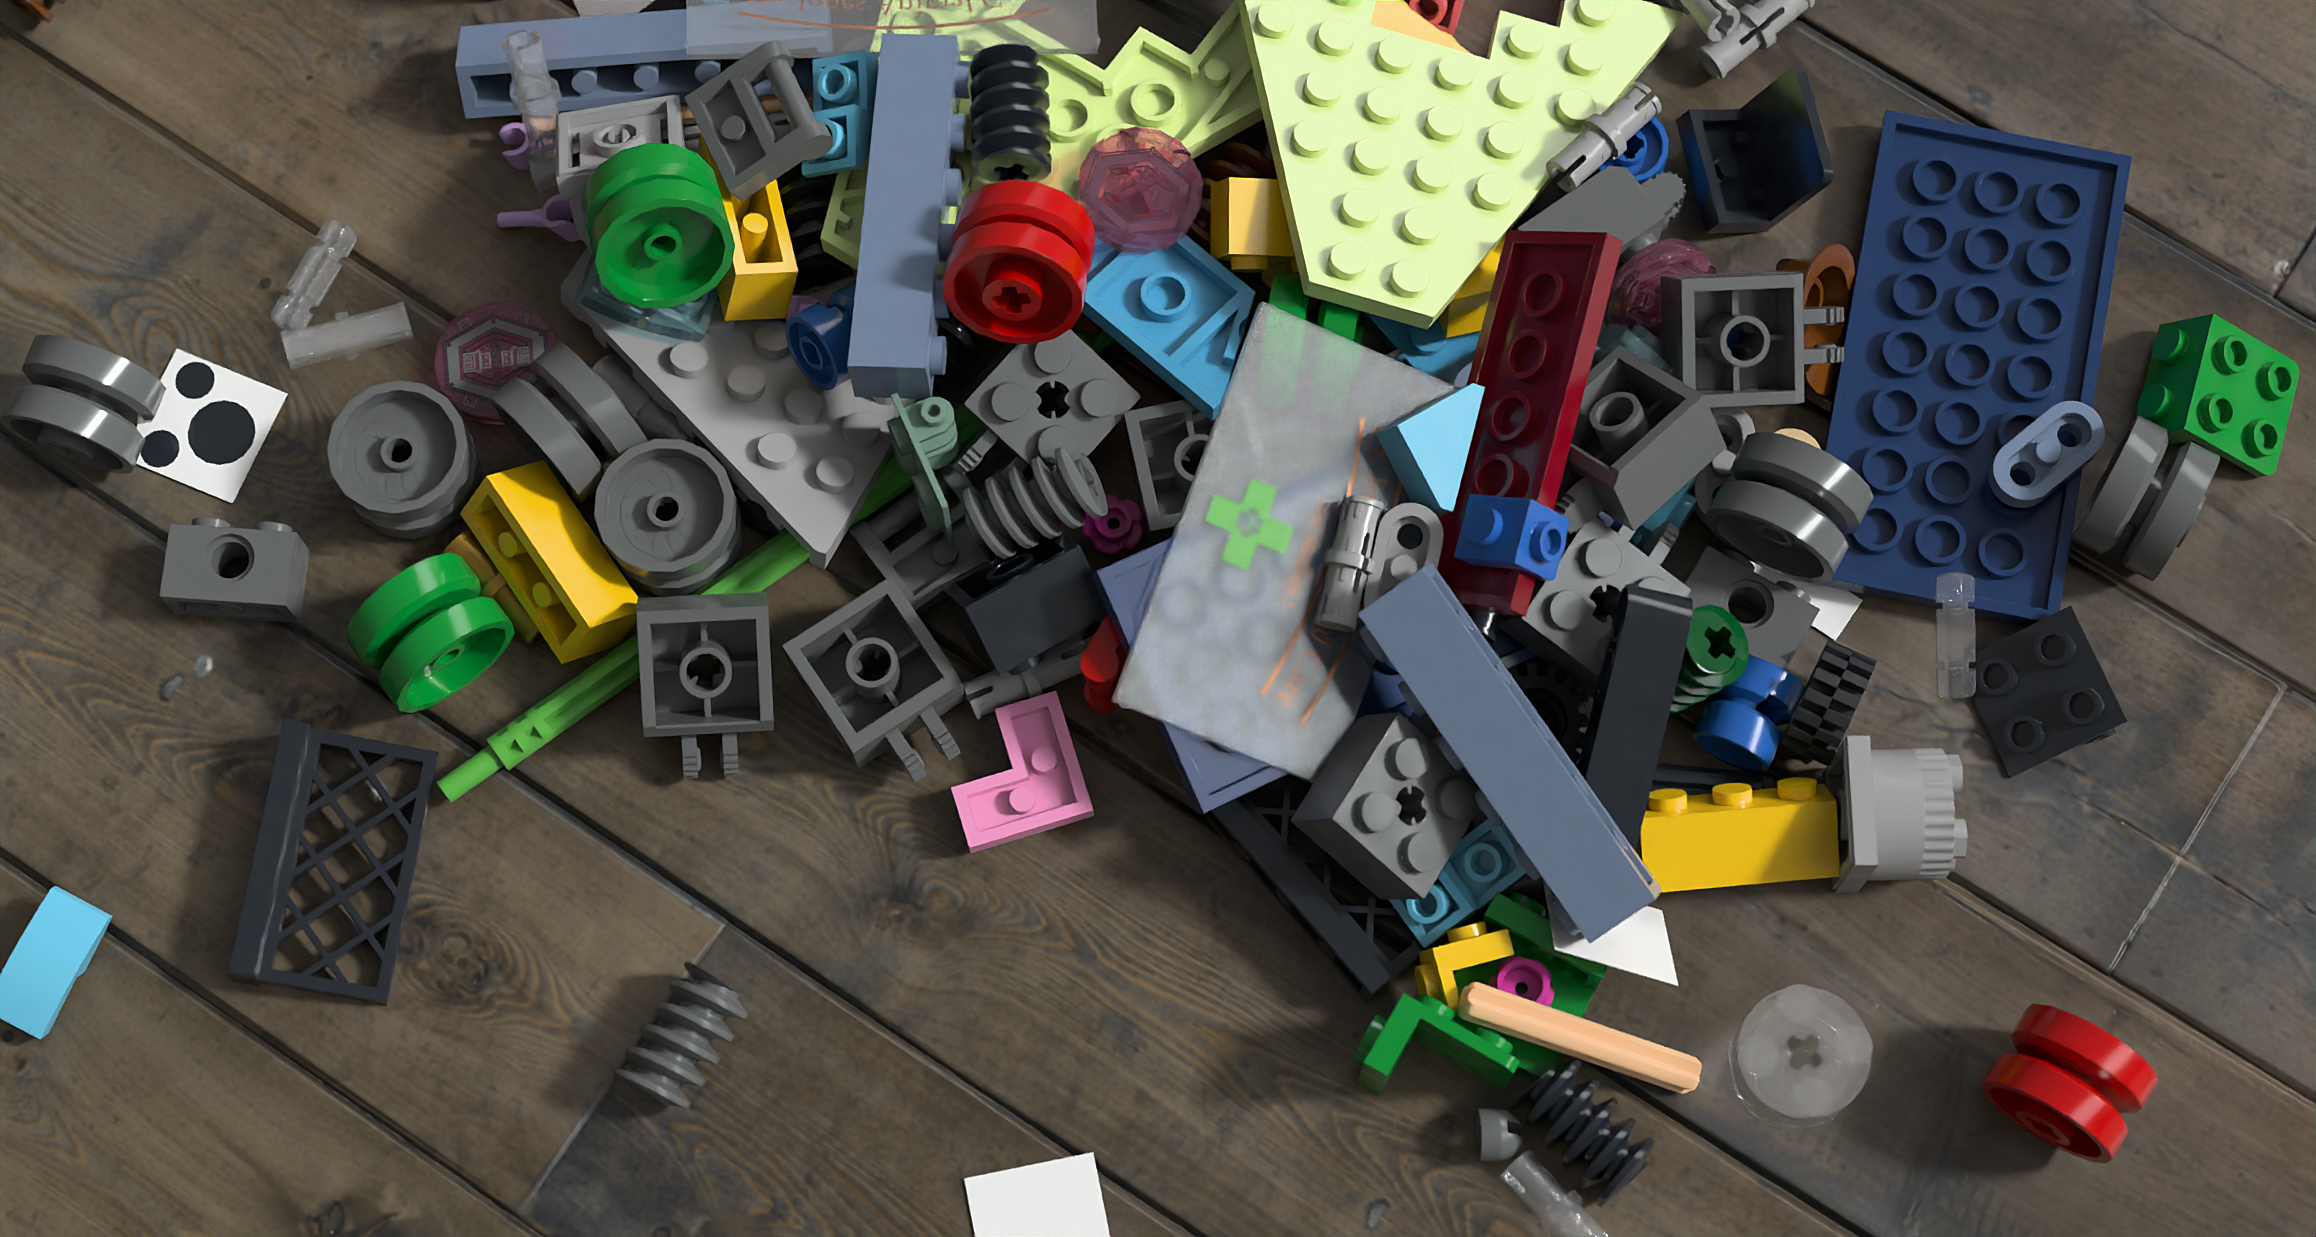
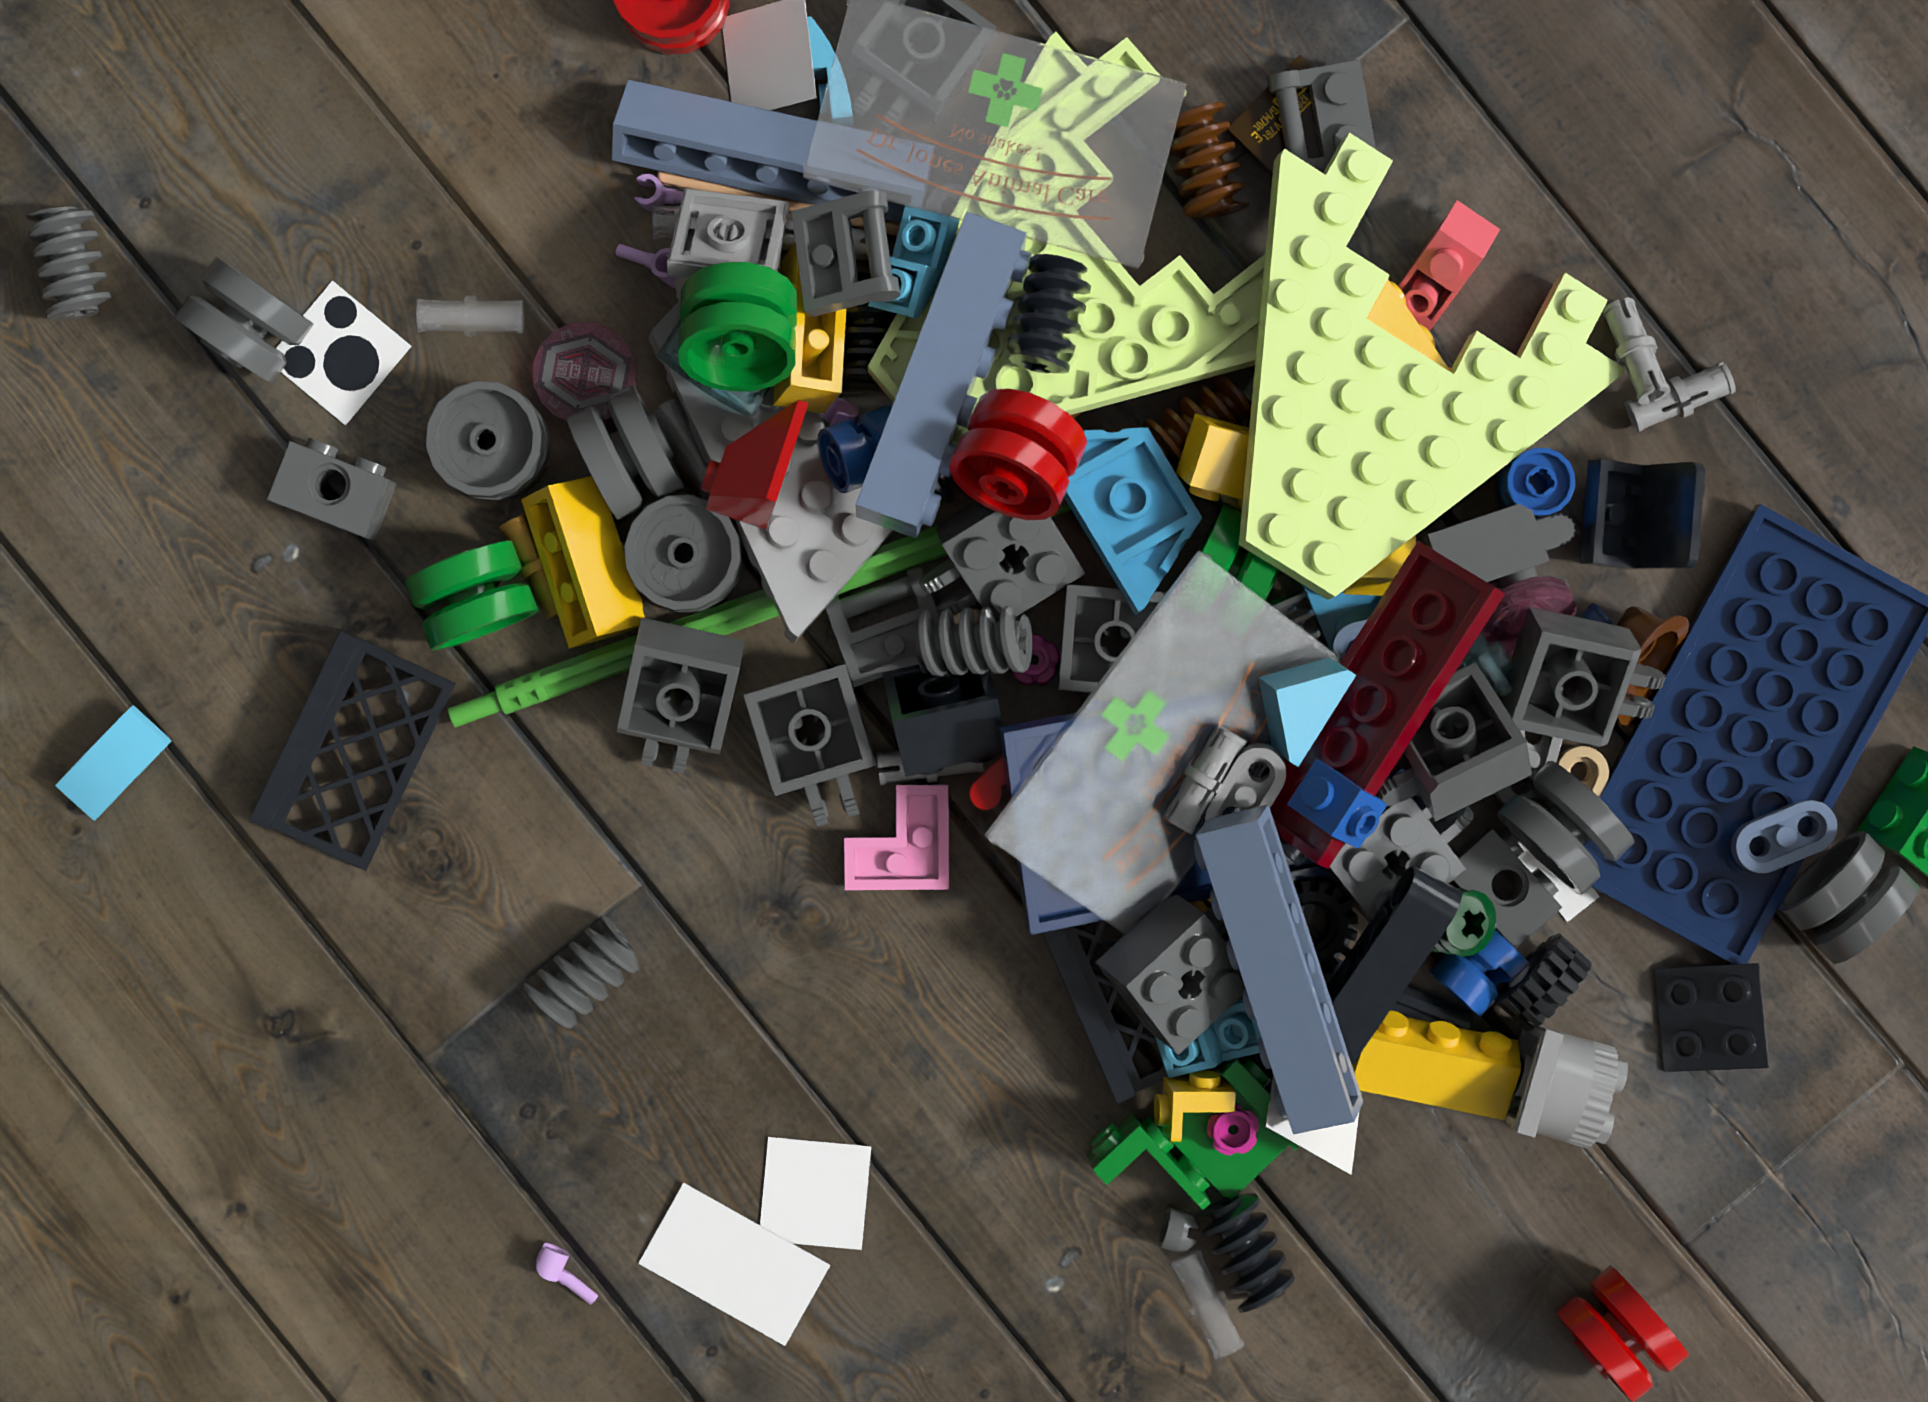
camera: 10 degrees right, 15 degrees up
(314, 275) = (456, 255): clear axle -> none
(533, 90) = (671, 163): clear pin -> none
(721, 378) = (754, 468): none -> red slope
(922, 443) = (898, 562): sand green hinge -> none
(1140, 190) = (1135, 406): clear pink tile -> none
(1579, 1038) = (1263, 1184): light nougat axle -> none
(1603, 137) = (1523, 475): light grey pin -> none
(1836, 1061) = (1455, 1246): clear brick -> none
(1955, 635) = (1661, 955): clear axle -> none

